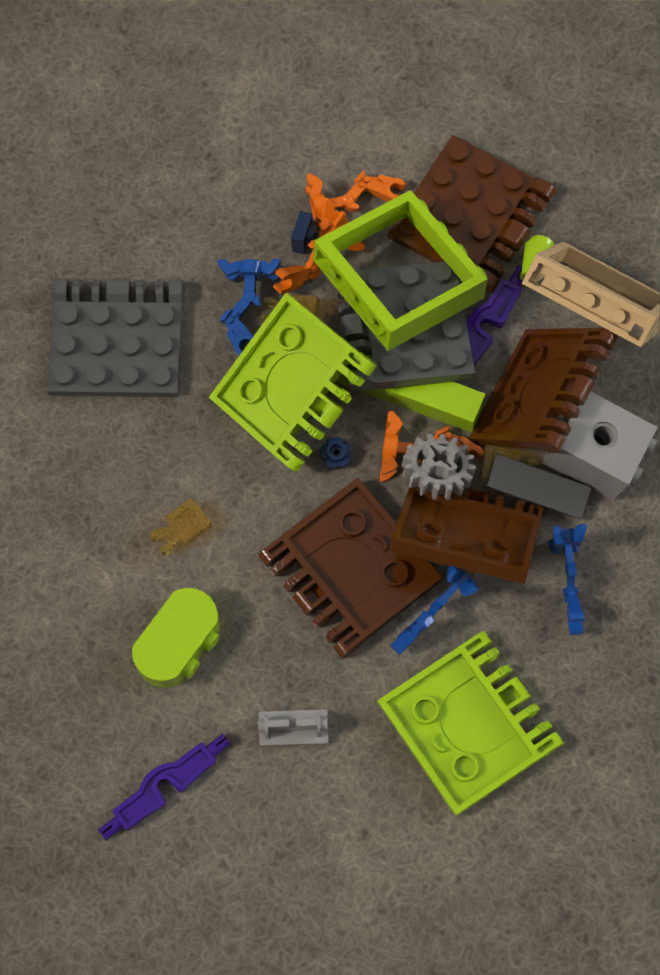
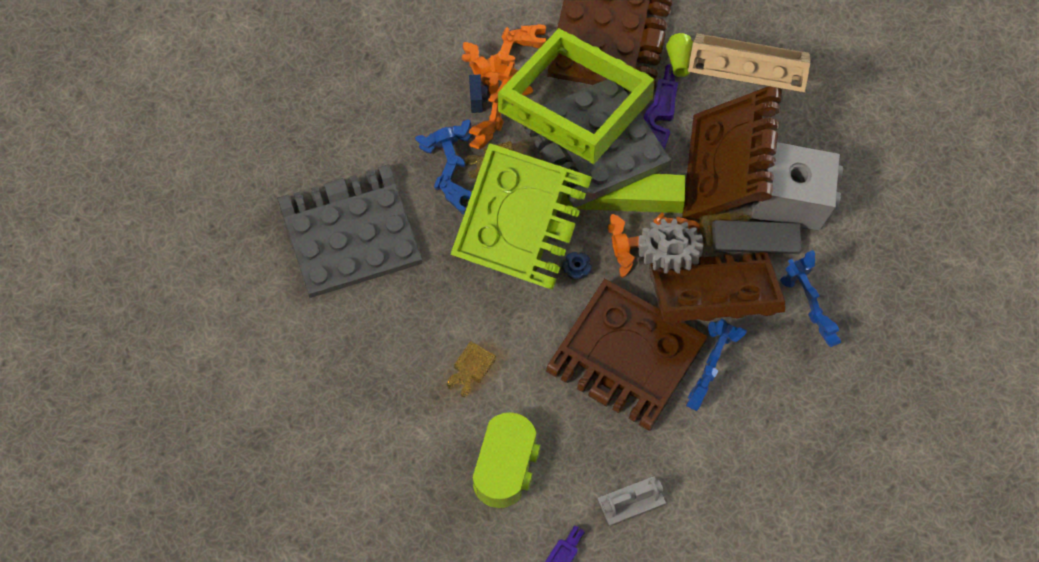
camera: 25 degrees left, 5 degrees down
(465, 727) = (774, 450): lime hinge -> none

